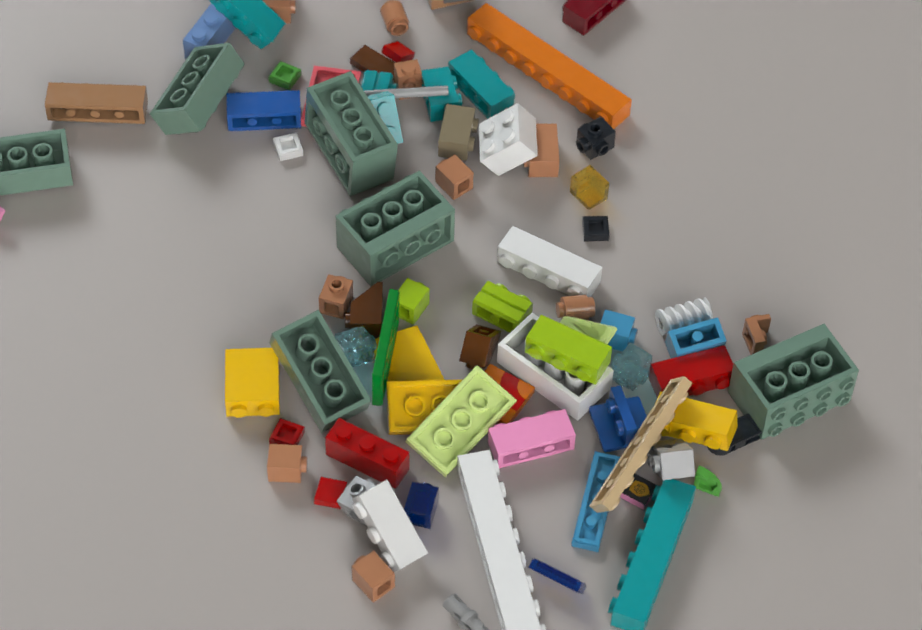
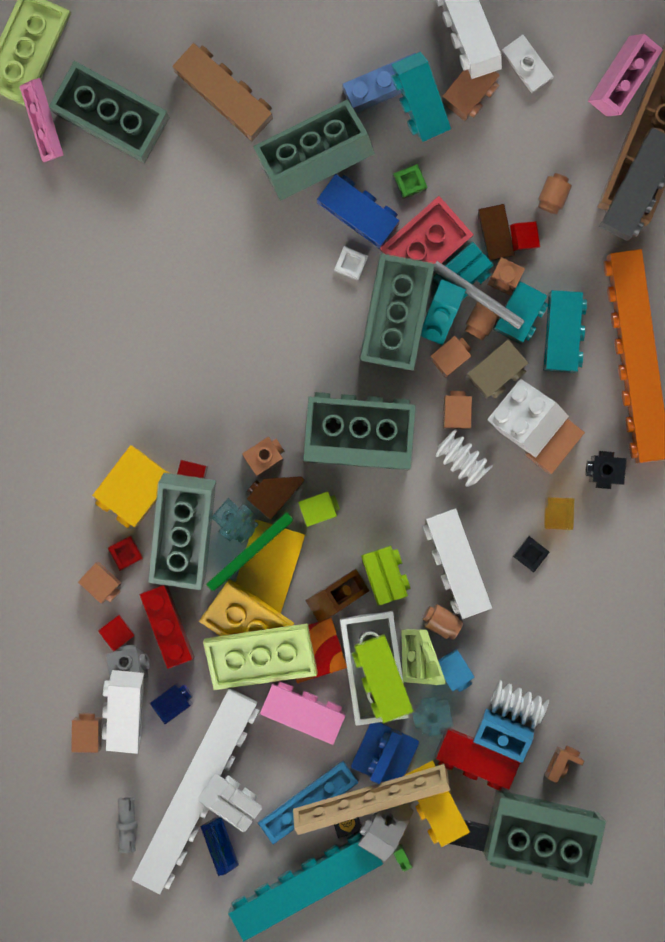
camera: 45 degrees right, 35 degrees up
(415, 149) = (451, 355): none -> nougat brick
(417, 115) = (481, 321): none -> nougat brick
(486, 199) = (462, 459): none -> white piece
(535, 530) = (230, 802): none -> white brick

